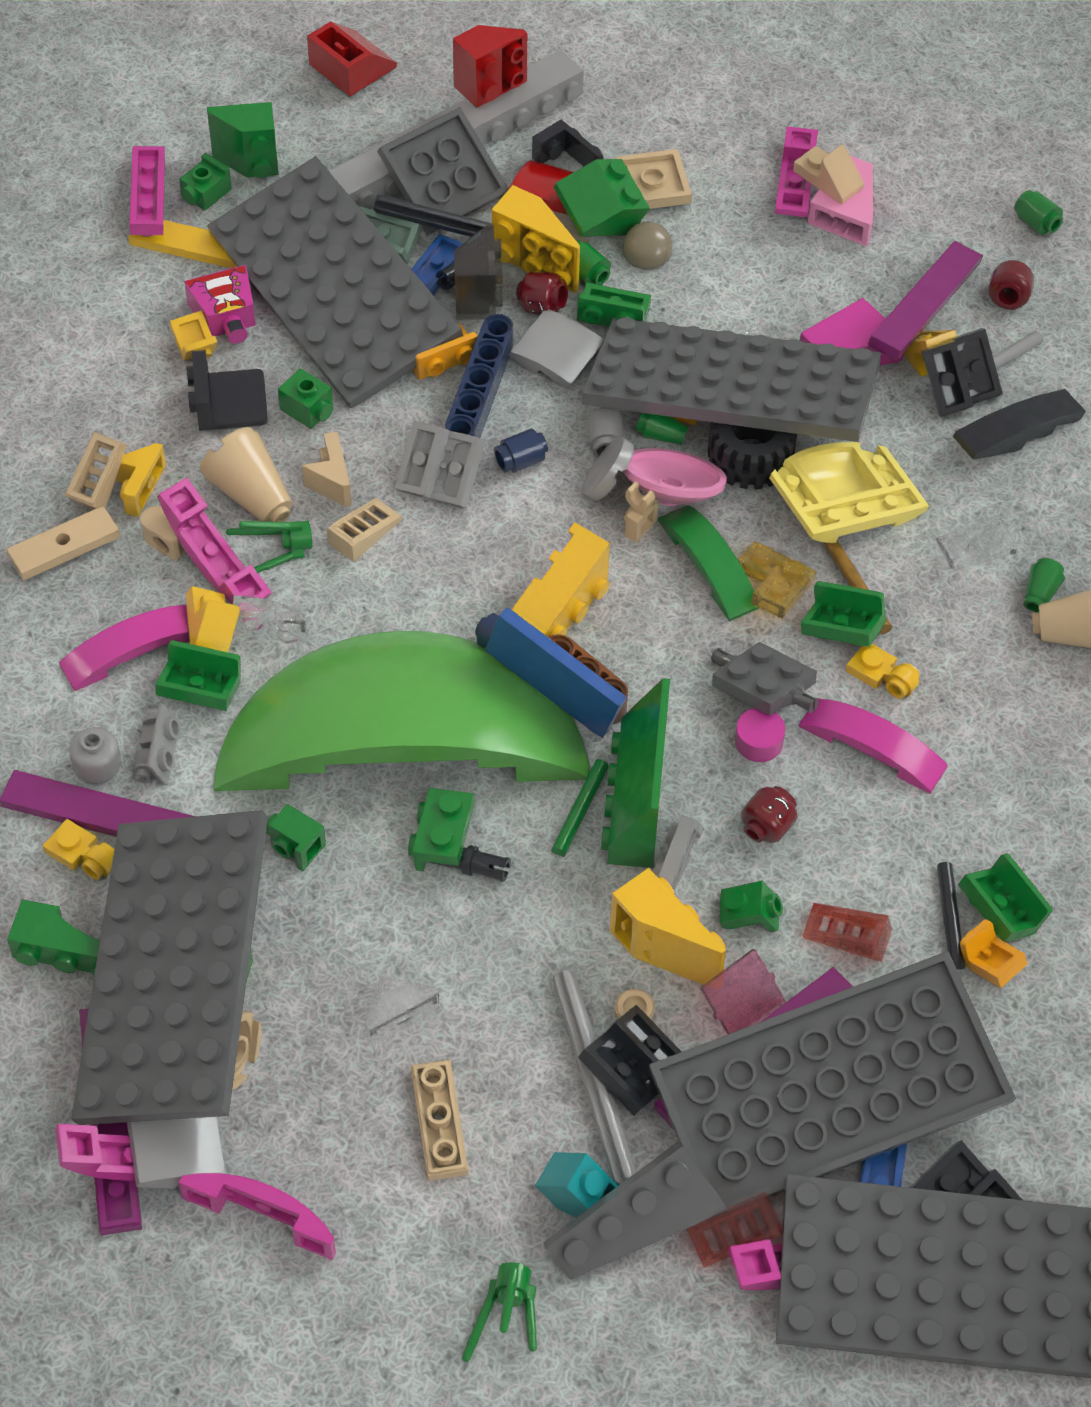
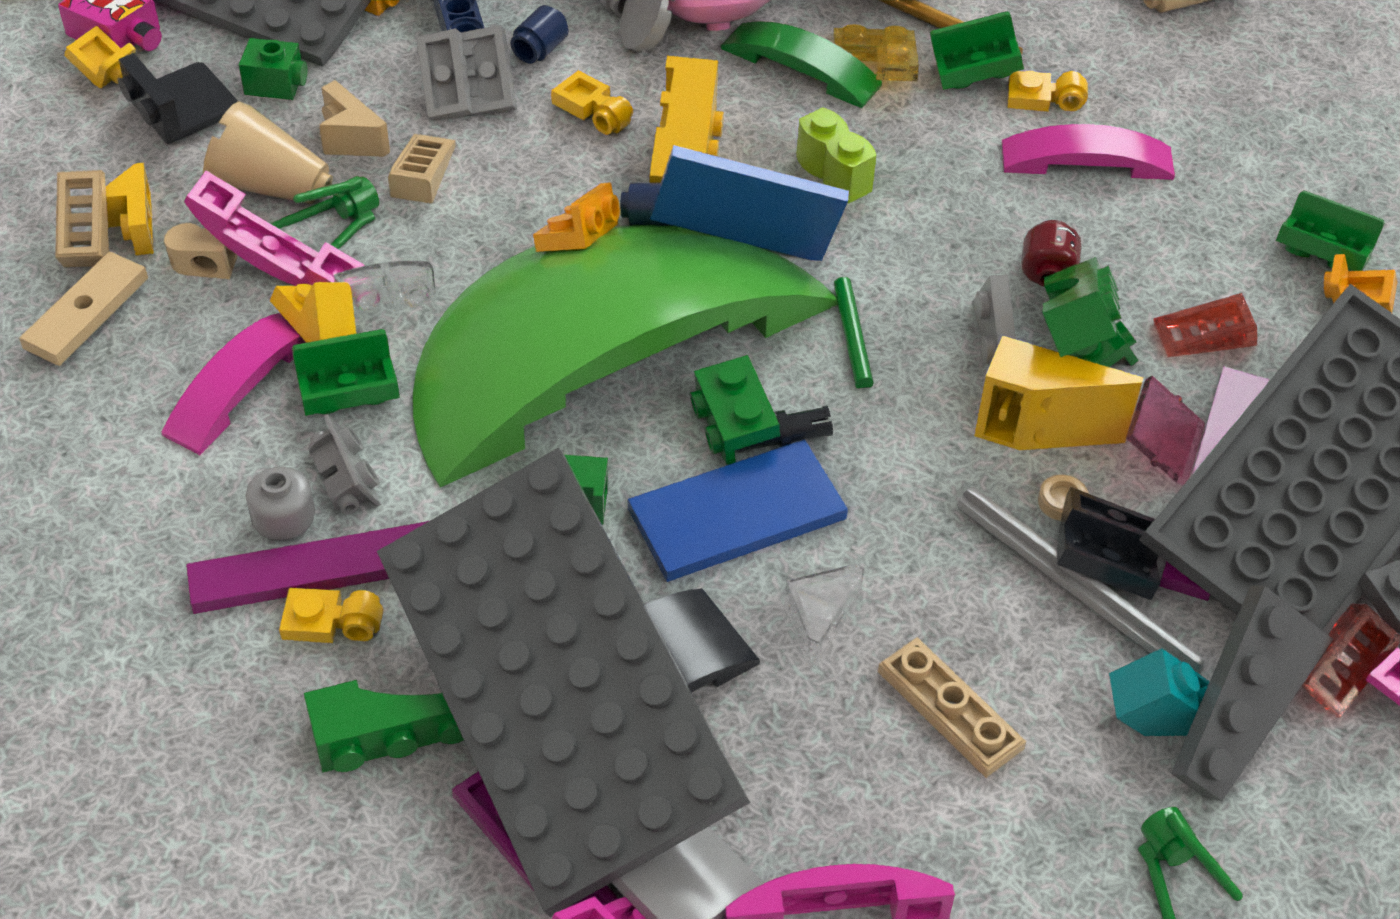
camera: 30 degrees left, 5 degrees down
(294, 985) = (701, 638): none -> slope
(398, 905) = (736, 510): none -> blue tile
(432, 631) = (581, 222): none -> light orange bracket
(520, 520) = (585, 96): none -> yellow plate
(636, 781) = (913, 263): green slope -> none
(641, 513) = (708, 43): tan plate -> none
(666, 653) = (835, 153): none -> lime brick
(716, 880) = (1081, 306): none -> green arch
(759, 735) = (979, 190): dark pink piece -> none
(764, 679) = (946, 137): dark grey plate -> none
(950, 913) = (1283, 272): black bar -> none

